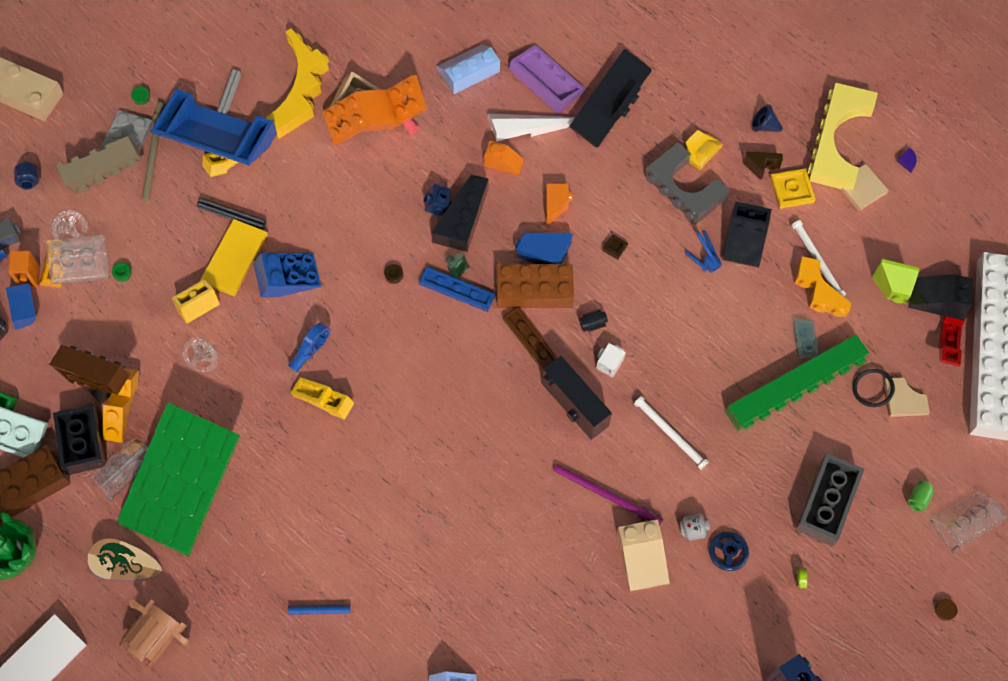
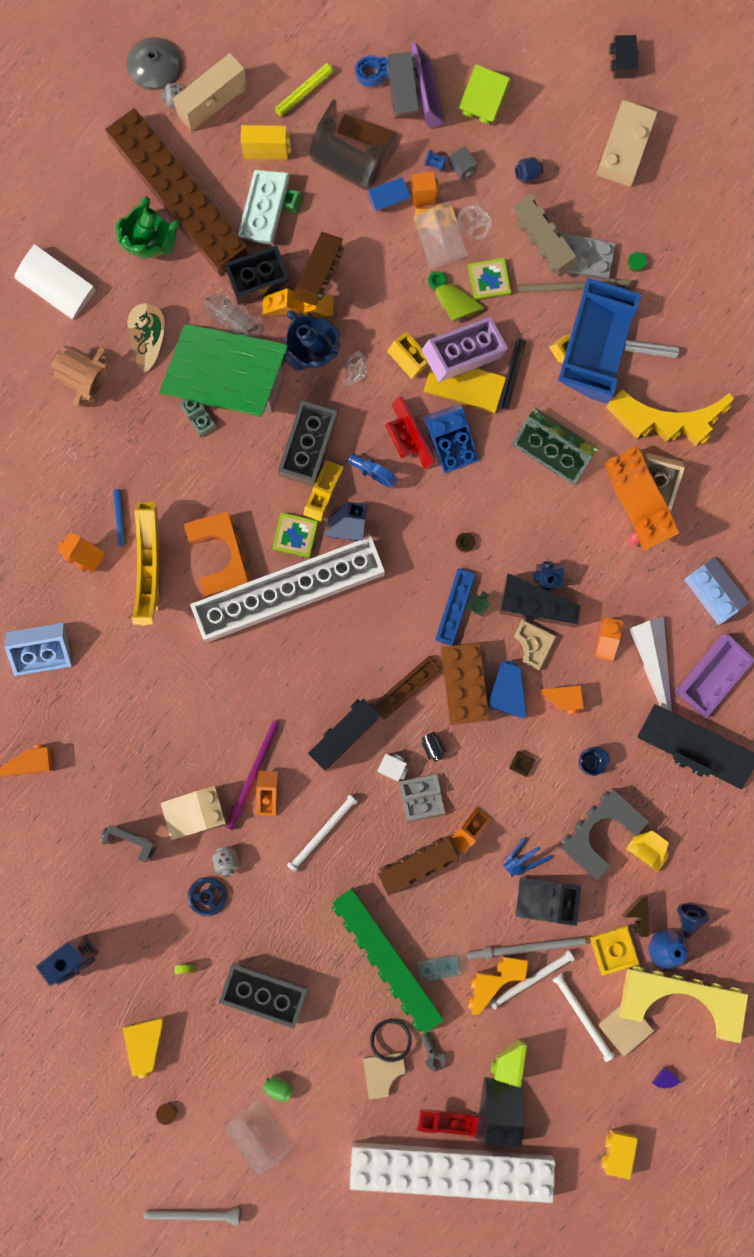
camera: 85 degrees right, 15 degrees up
(130, 224) = (489, 279): none -> tile
(148, 255) = (457, 302): none -> lime slope
(163, 384) = (310, 341): none -> dark blue piece
(200, 247) = (464, 349): none -> lavender brick
(222, 517) = (198, 417): none -> sand green slope
(271, 405) = (308, 443): none -> dark grey brick
(276, 312) = (407, 434): none -> red bracket
(310, 183) = (554, 446): none -> clear green slope
(347, 501) = (219, 528): none -> orange arch
(353, 649) = (81, 552): none -> orange brick
(359, 373) = (347, 522): none -> dark blue slope
(364, 431) = (295, 535): none -> tile
(377, 578) = (148, 566): none -> yellow arch
(422, 441) = (287, 589): none -> white brick
(500, 223) = (535, 643): none -> tan tile
(617, 183) = (593, 761): none -> dark blue hair
(627, 480) = (267, 793): none -> orange slope
(642, 337) = (422, 798): none -> light grey slope
(677, 296) = (470, 830): none -> orange slope
(679, 601) = (148, 845): none -> dark grey panel
(708, 343) = (418, 866): none -> reddish brown wedge
(792, 292) = (488, 953): none -> light grey bar
(794, 140) = (668, 949): none -> blue cone
(877, 624) = (143, 1045): none -> yellow slope
(886, 203) = (608, 1055): none -> white bar
(886, 352) = (432, 1053): none -> dark grey bar
(975, 202) = (619, 1154): none -> yellow brick

